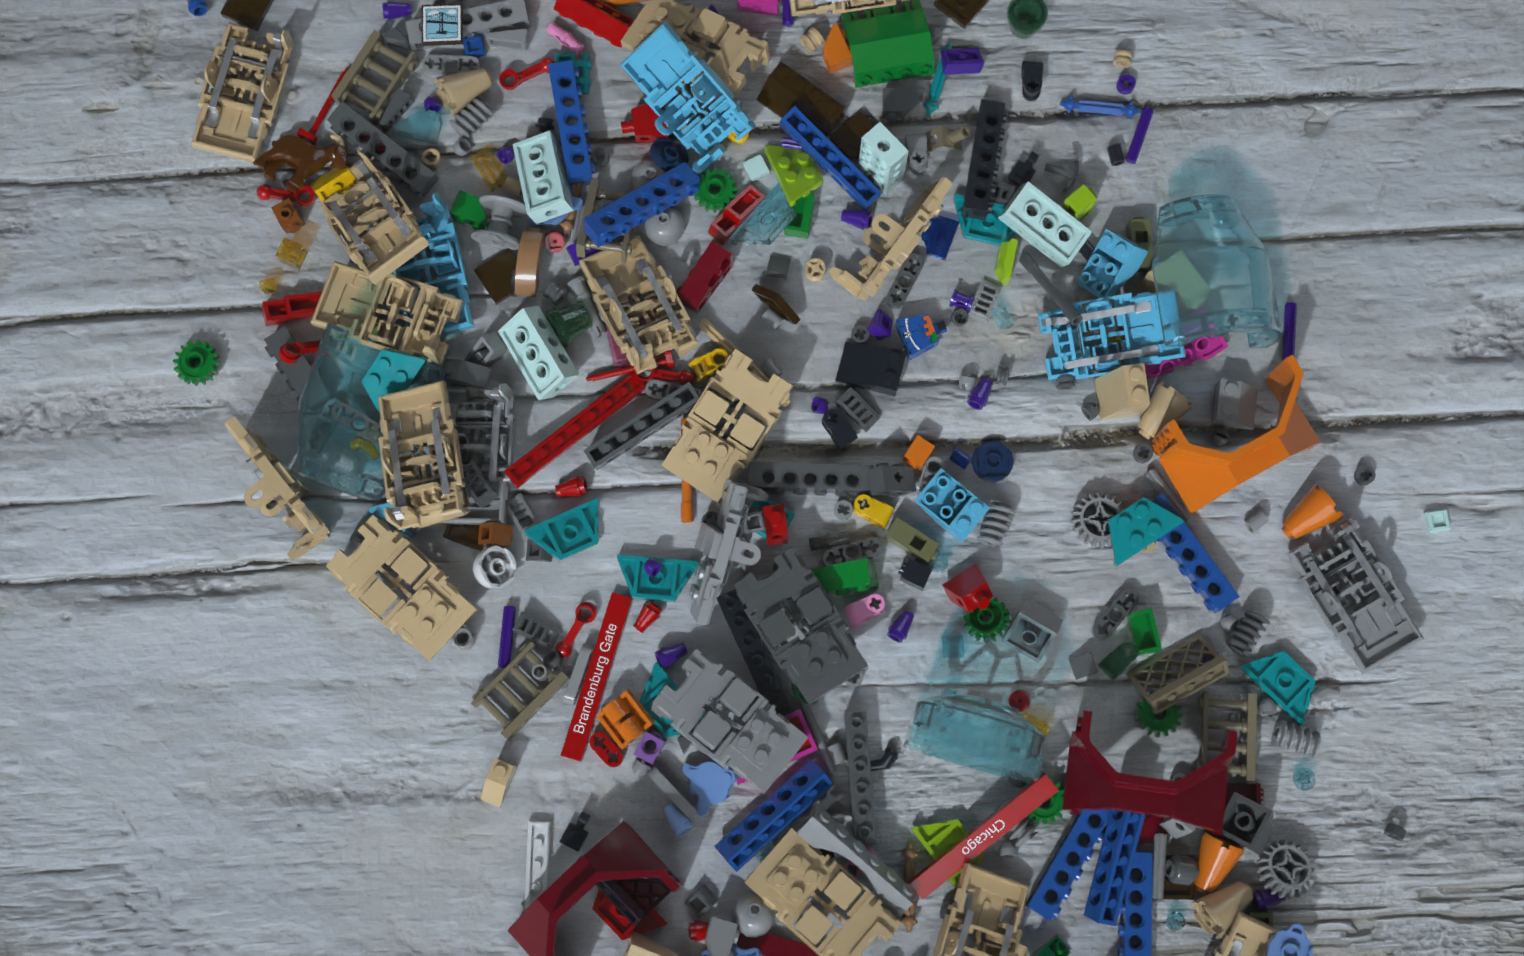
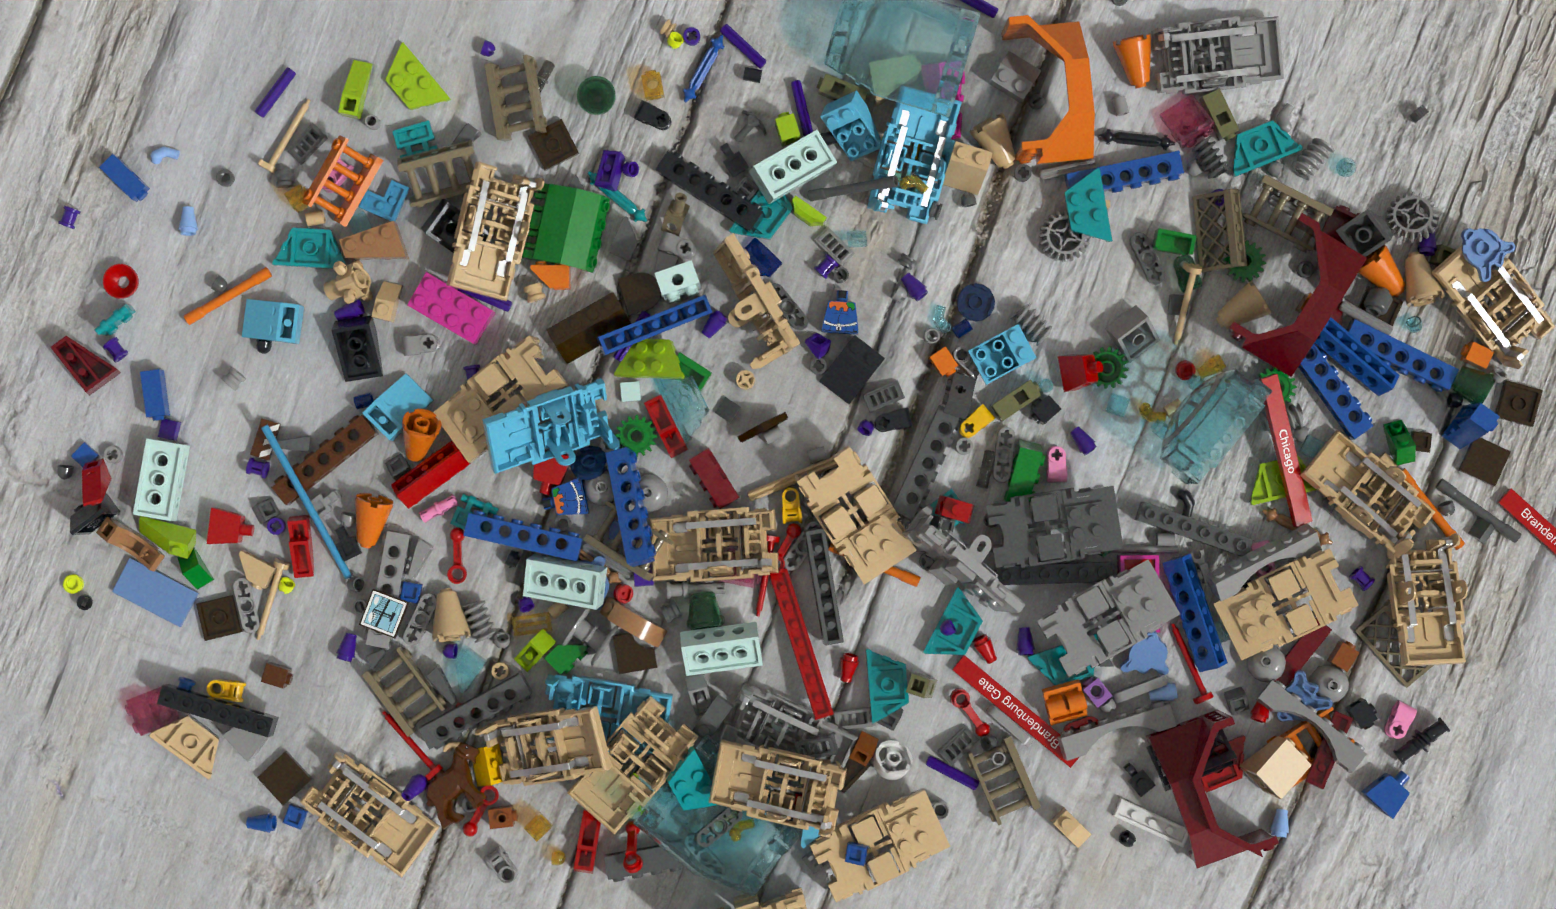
camera: 65 degrees left, 10 degrees up
(213, 29) = (295, 816): none -> blue tile
(240, 232) = (501, 864): none -> light grey piece
(285, 123) = (415, 786): none -> dark purple cone
(382, 563) = (856, 853): none -> blue tile
(465, 179) = (535, 650): none -> lime slope
(510, 846) = (1123, 837): none -> black hinge
(582, 563) = (921, 685): none -> olive brick
(625, 151) = (568, 498): none -> blue torso
(646, 820) = (1079, 742): none -> light grey arch
(692, 864) = (1204, 694): none -> red piece
(936, 429) = (929, 338): none -> light grey hinge
(958, 433) = (939, 320): none -> clear light blue arm
(959, 680) = (1148, 413): none -> clear yellow arm
(971, 82) = (630, 169): none -> dark purple hinge
(1000, 866) = (1311, 446): none -> clear light blue tile
(1055, 72) = (652, 94): none -> clear yellow brick
(1084, 341) = (913, 181): none -> clear yellow arm
(1108, 212) = (801, 107): none -> dark purple axle
(1114, 733) = (1243, 307): none -> tan cone
(1117, 66) = (675, 36): none -> neon yellow hinge
(1126, 660) = (1193, 270): none -> tan piece
(1230, 552) = (1136, 139): none -> black wheel
(1272, 595) = (1187, 121): none -> clear pink plate
(1294, 624) = (1218, 110): none -> olive brick

